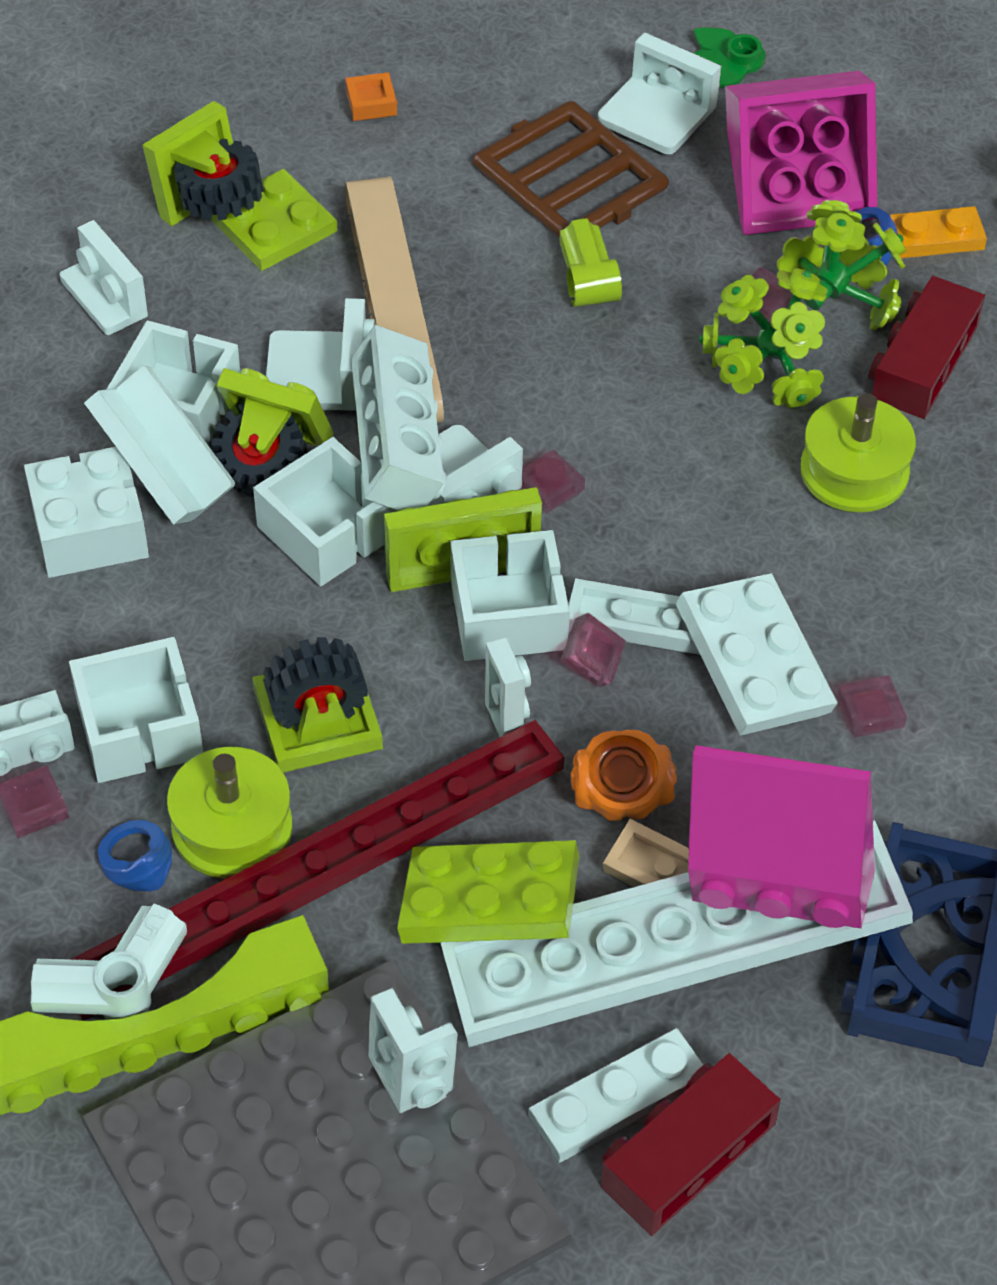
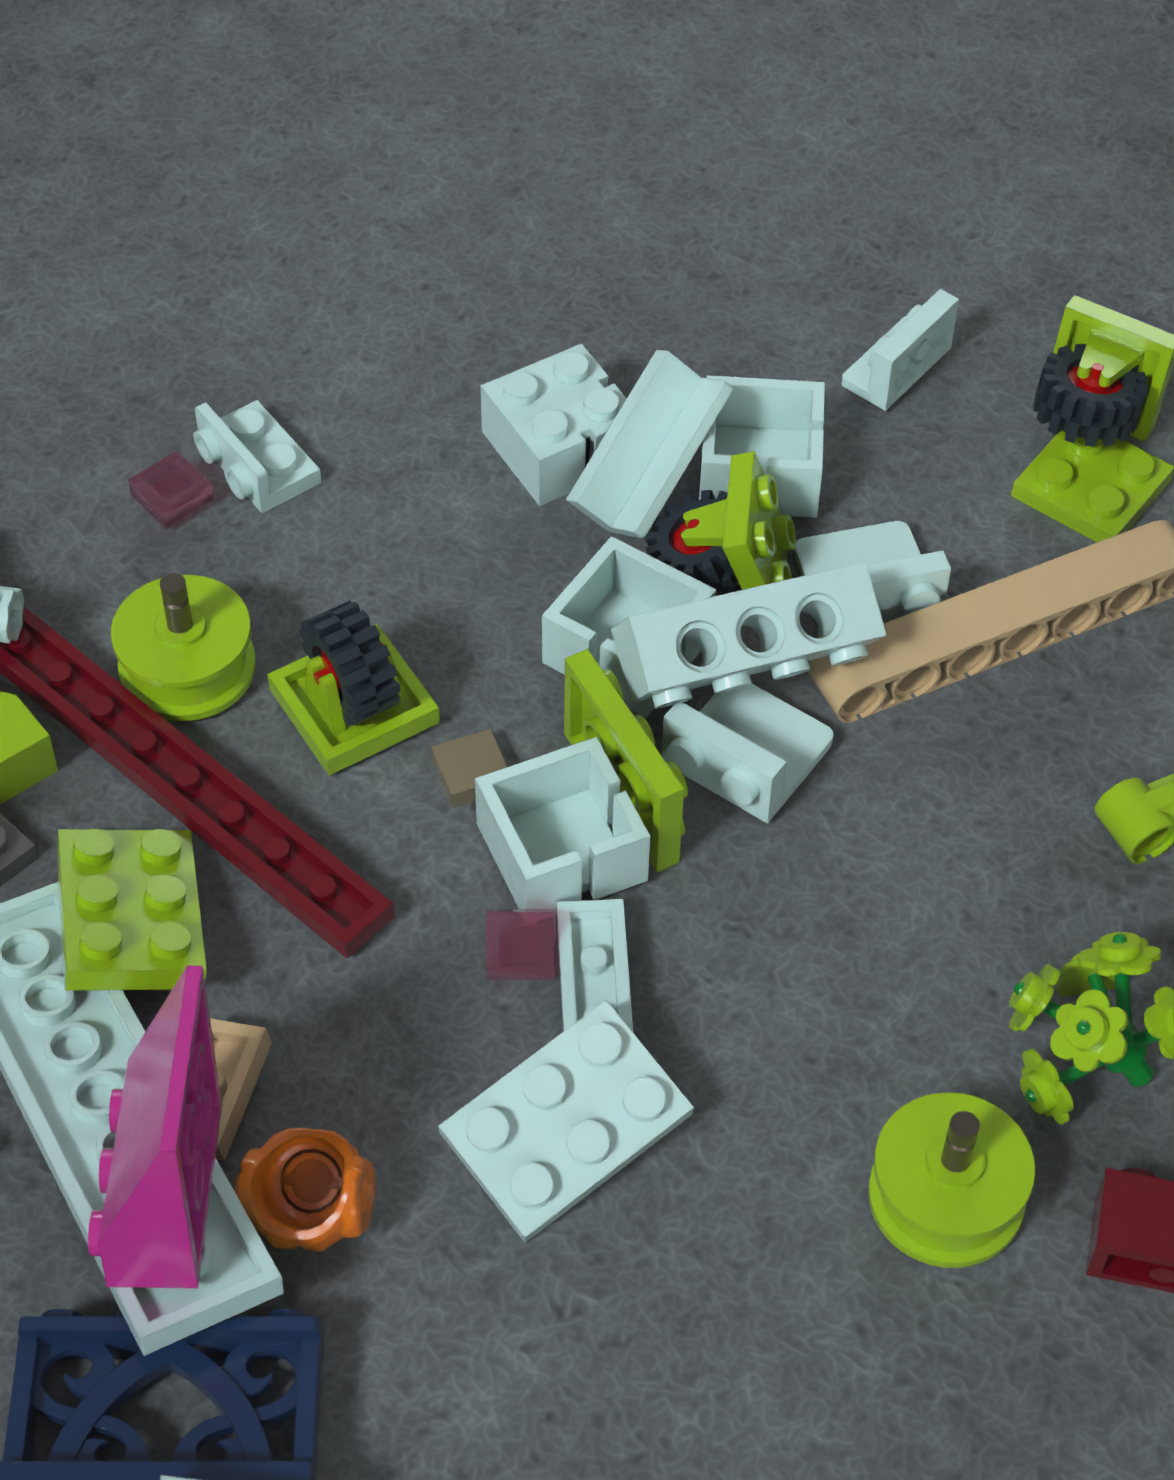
camera: 75 degrees right, 0 degrees up
(134, 709) = (293, 530): light aqua piece -> none
(149, 870) = (106, 601): blue piece -> none
(409, 653) = (464, 760): none -> dark tan tile
(505, 686) = (405, 850): light aqua plate -> none
(554, 479) = (787, 850): clear pink plate -> none
(623, 775) = (325, 1006): orange hair -> none
(872, 706) = (540, 1285): clear pink tile -> none

